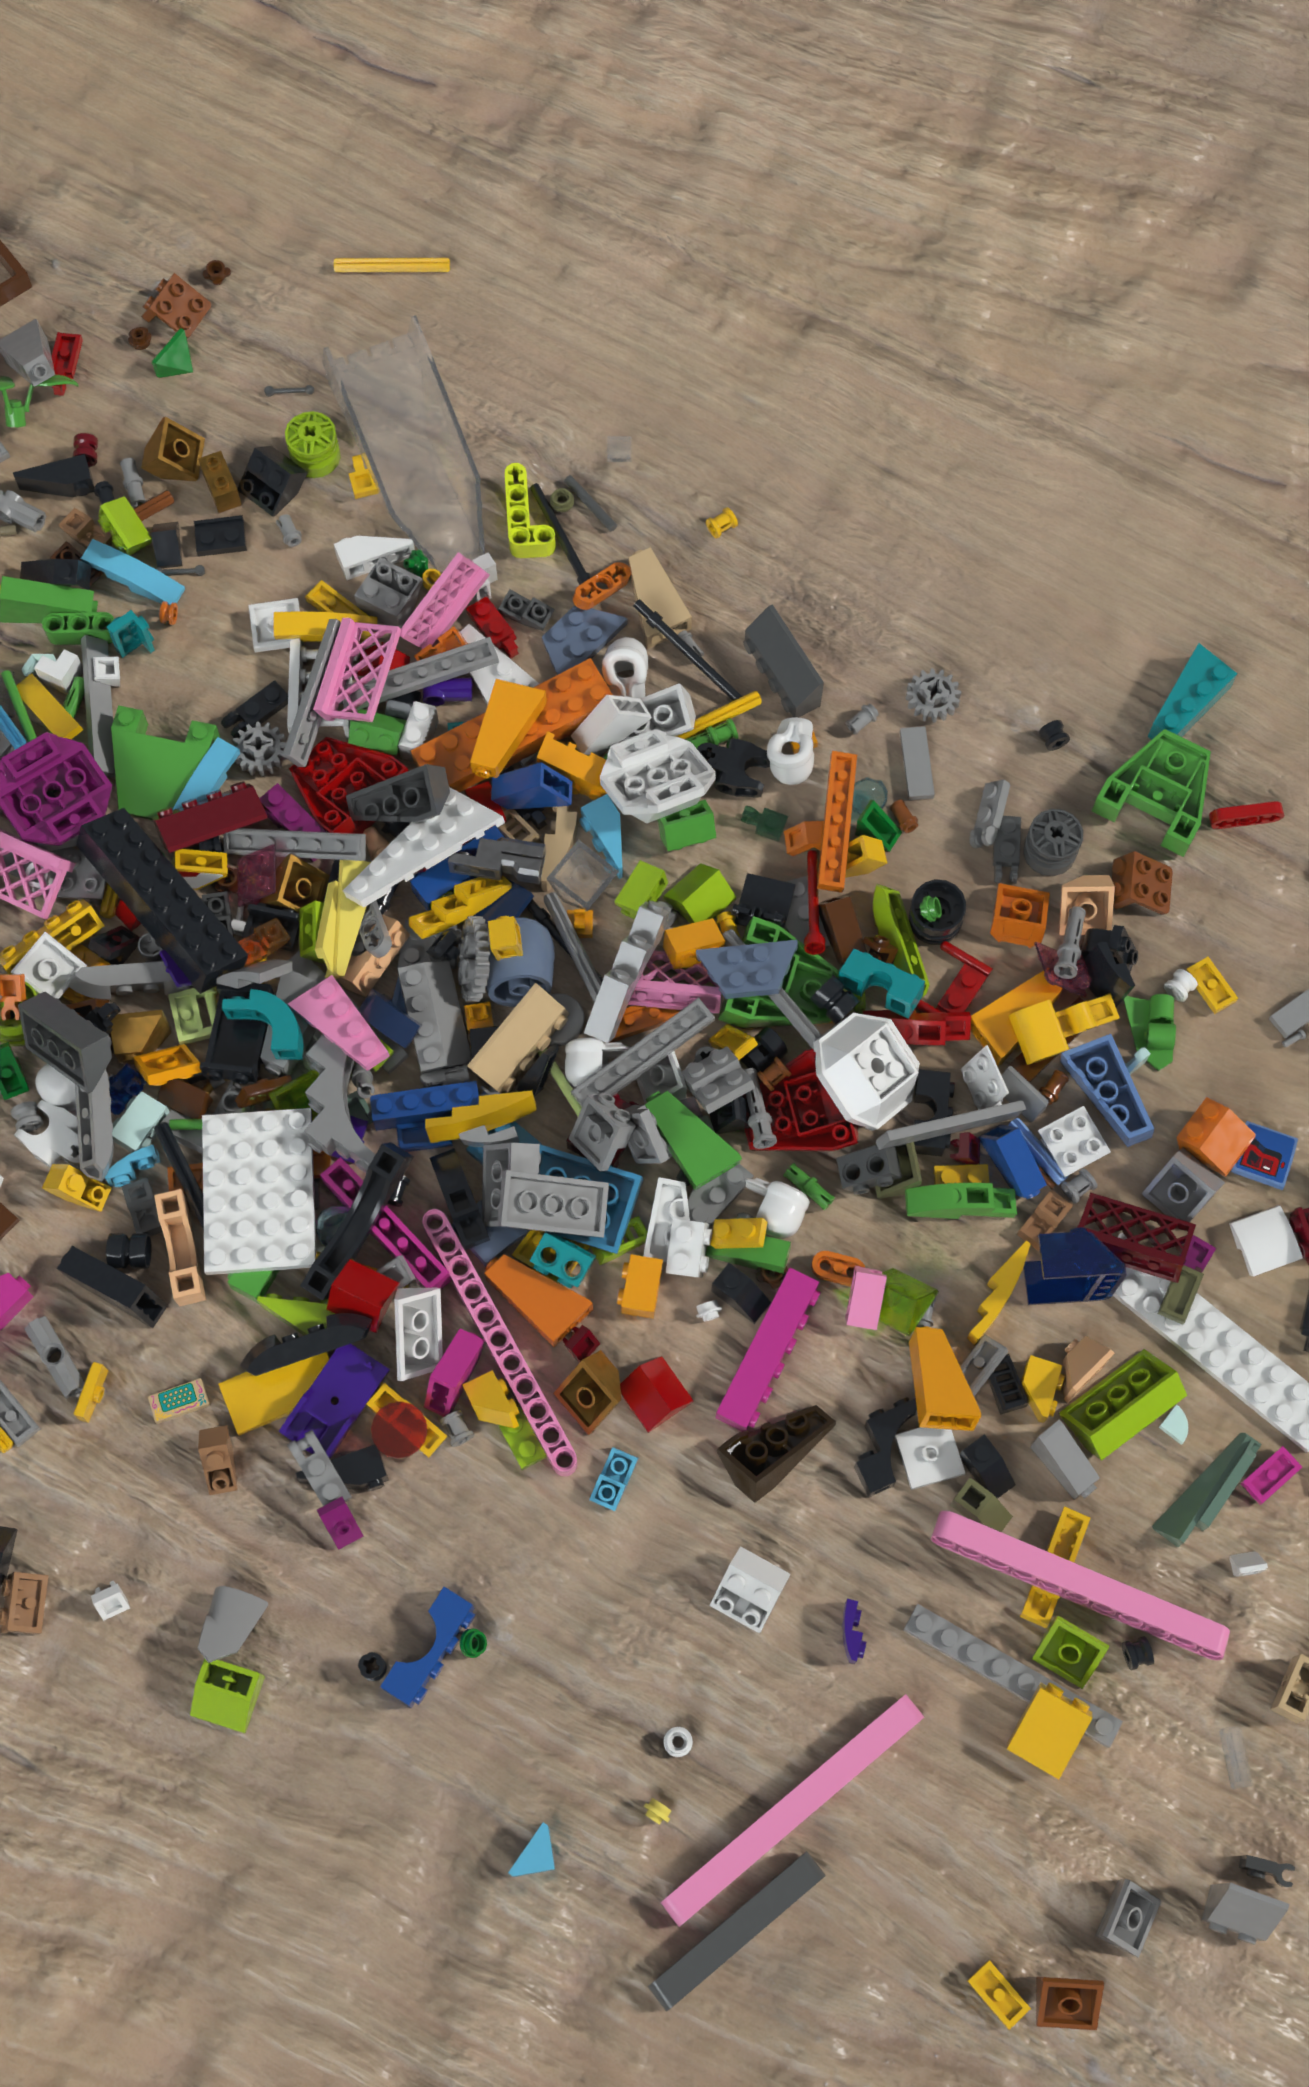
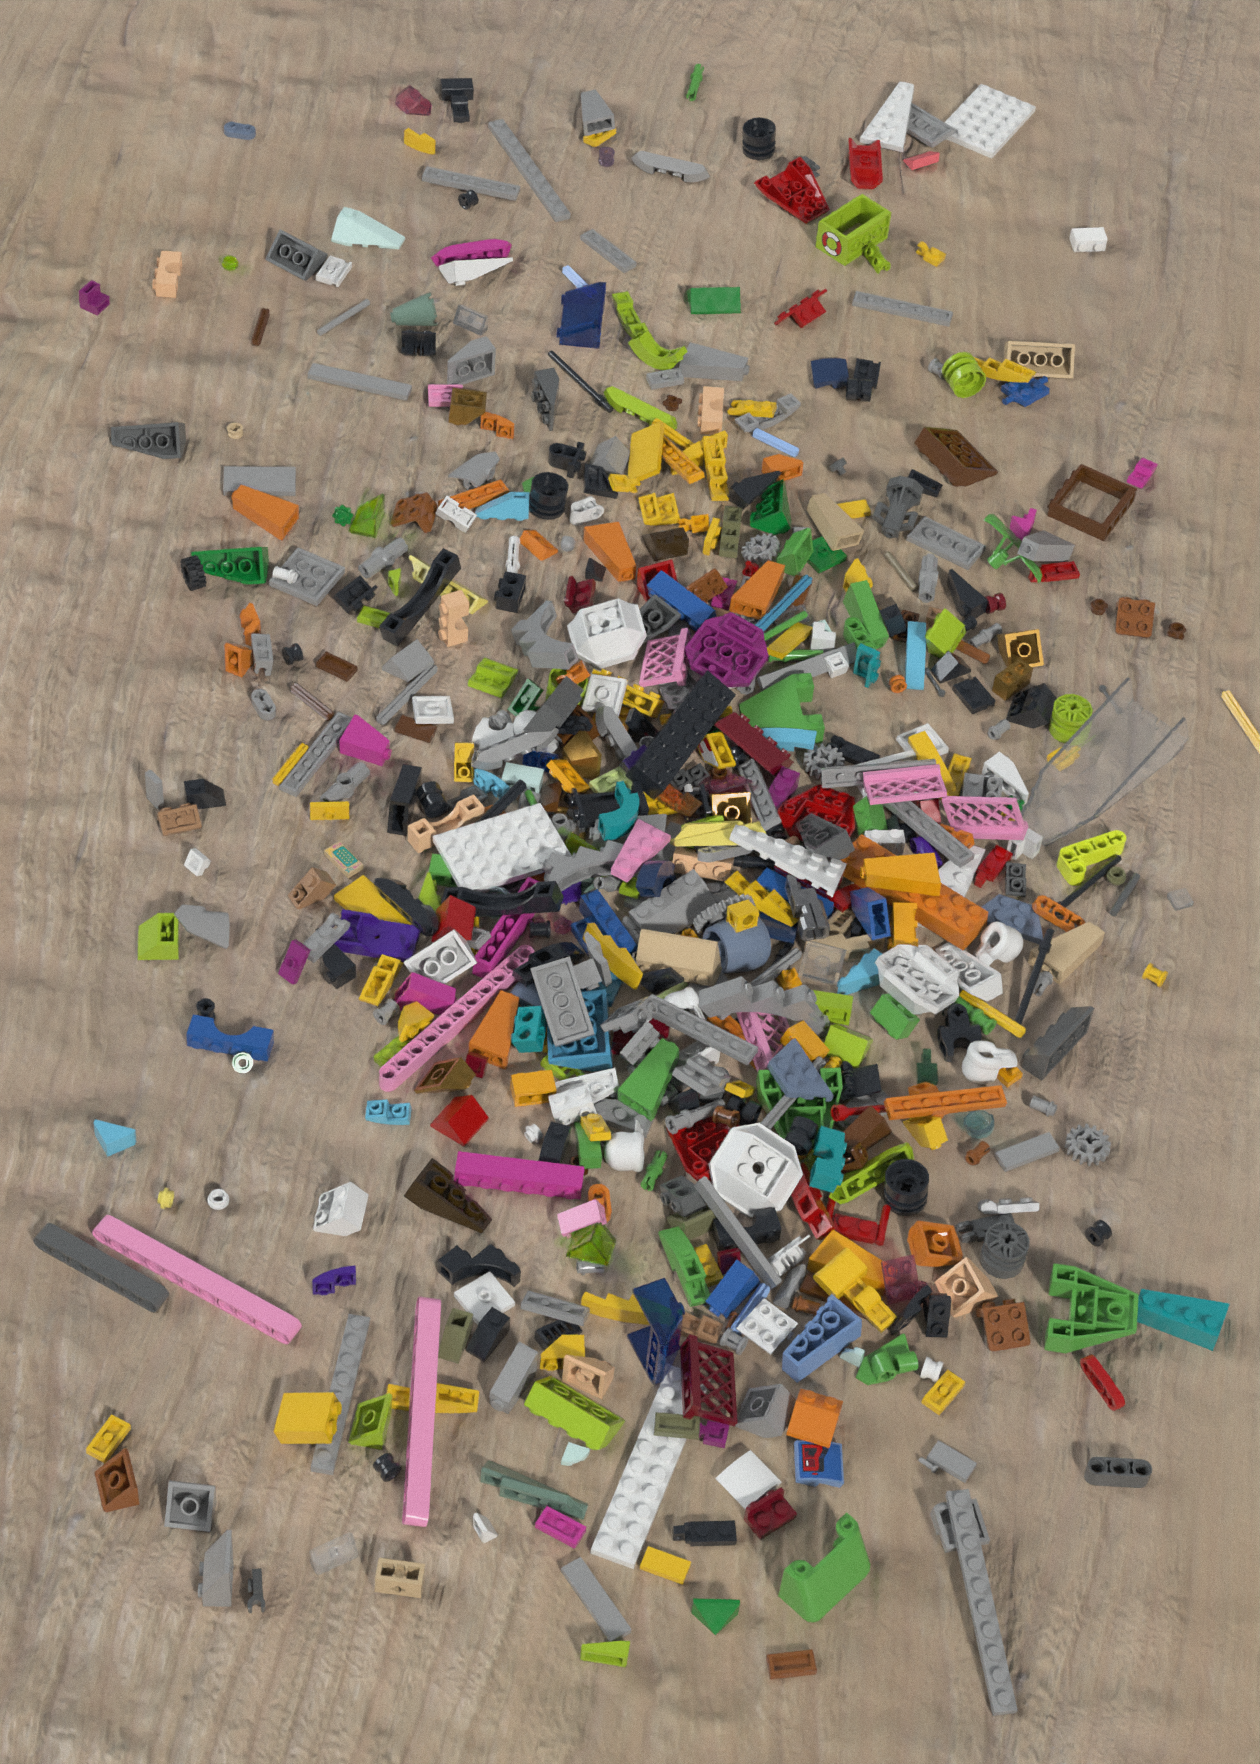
camera: 65 degrees right, 20 degrees down
(174, 357) = (1095, 628): green slope -> none
(256, 973) = (651, 796): light grey slope -> none
(259, 1091) = (568, 825): reddish brown plate -> none
(399, 1430) = (369, 972): clear red tile -> none
(444, 946) = (724, 893): black tile -> none
(610, 723) = (951, 944): white slope -> none
(877, 824) = (958, 1135): green slope -> none
(930, 908) = (901, 1173): bright green plate -> none
(939, 1383) = (535, 1278): light orange slope -> none
(1069, 951) = (916, 1274): light grey pin -> none

